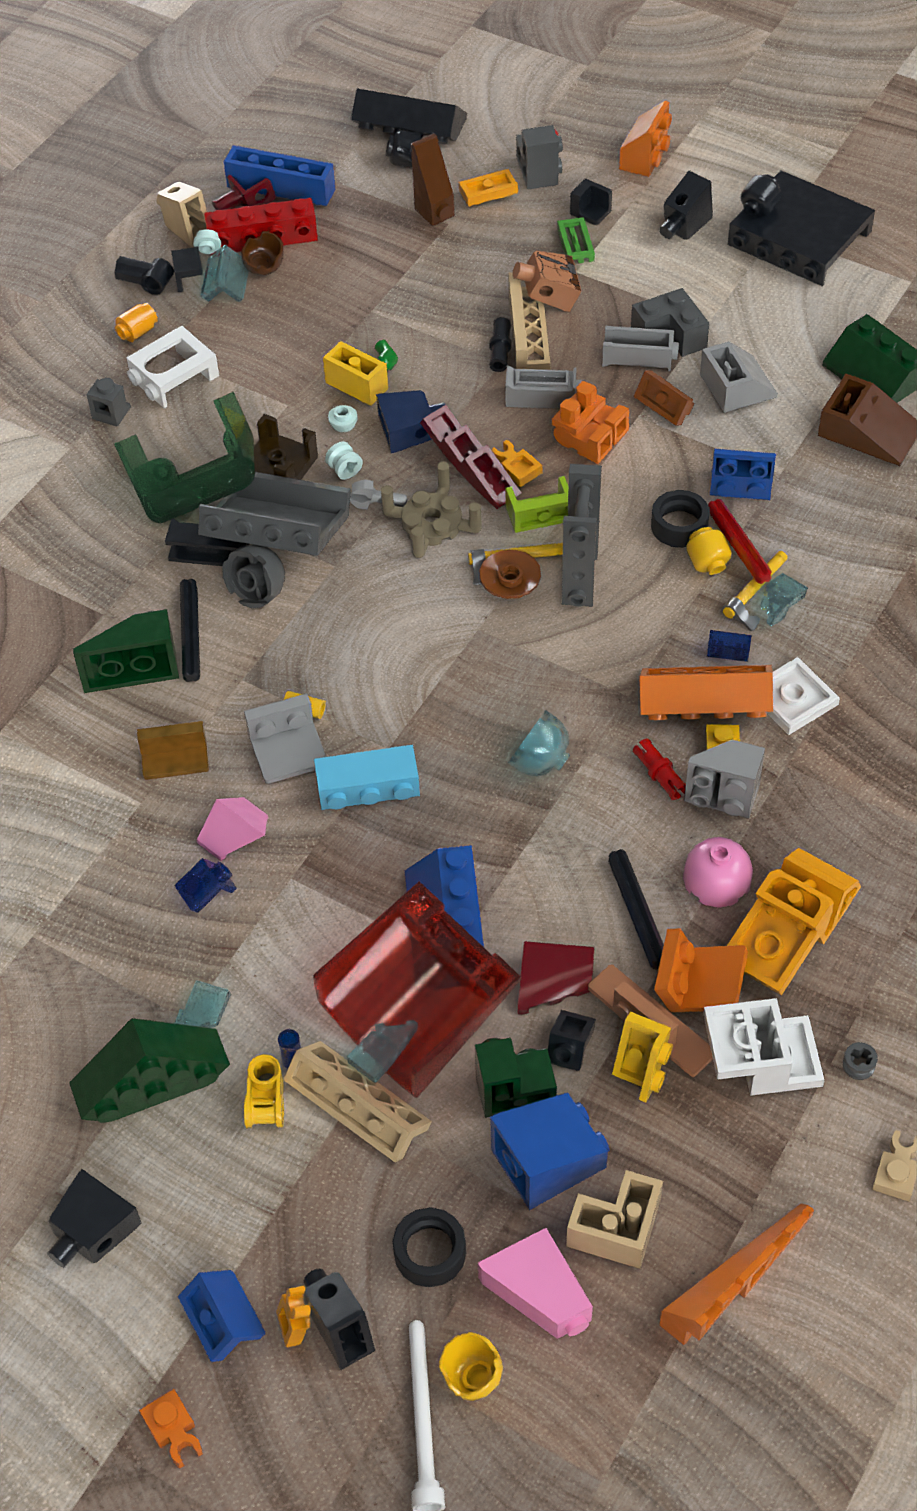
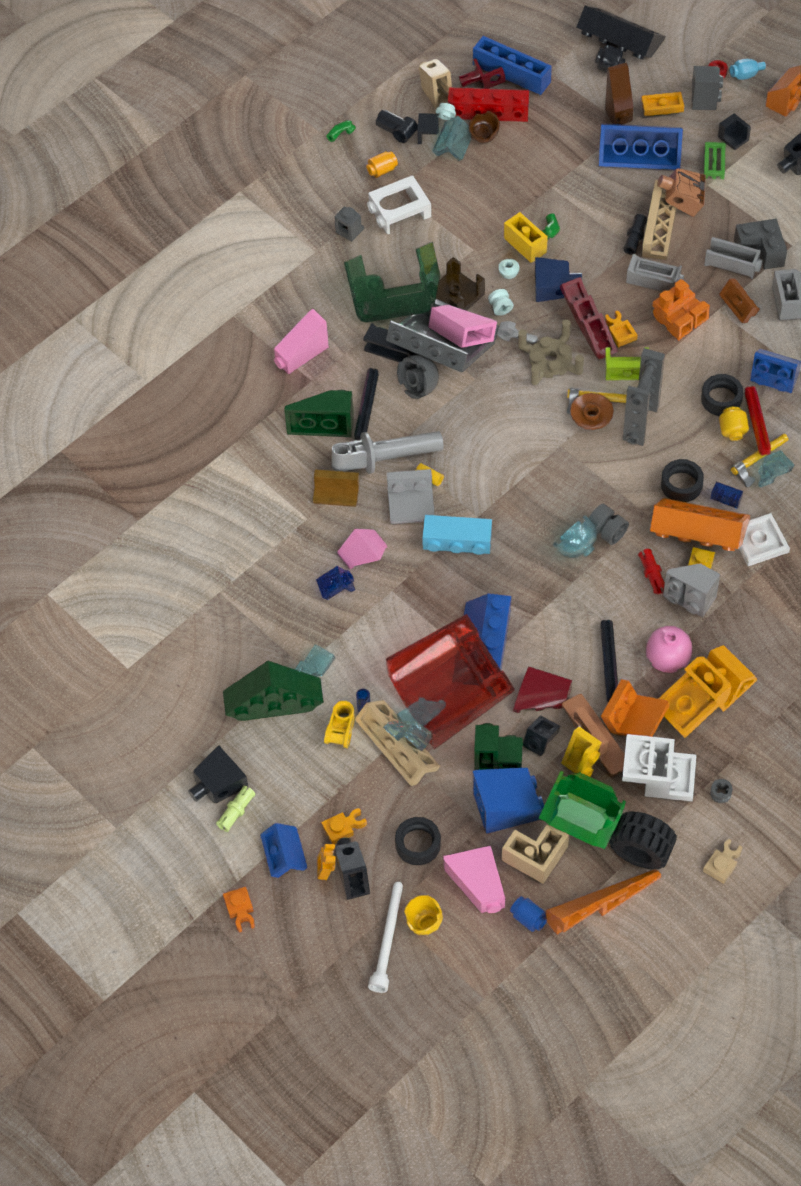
camera: 15 degrees right, 5 degrees up
(66, 292) = (339, 128): none -> green arm
(78, 564) = (302, 342): none -> bright pink slope
(129, 1264) = (235, 808): none -> yellowish green pin
(207, 691) = (365, 452): none -> light grey piece
(299, 497) = (462, 326): none -> bright pink slope
(303, 1253) = (341, 826): none -> light orange plate
(377, 1076) = (413, 731): none -> clear light blue slope
(475, 239) = (640, 146): none -> blue slope
(580, 719) = (608, 524): none -> dark grey wheel
(581, 130) = (746, 68): none -> medium azure plant
(634, 1323) = (528, 914): none -> blue brick
(666, 621) = (682, 466): none -> black tyre
(672, 1136) = (583, 808): none -> green piece
(776, 1163) = (643, 840): none -> black tyre

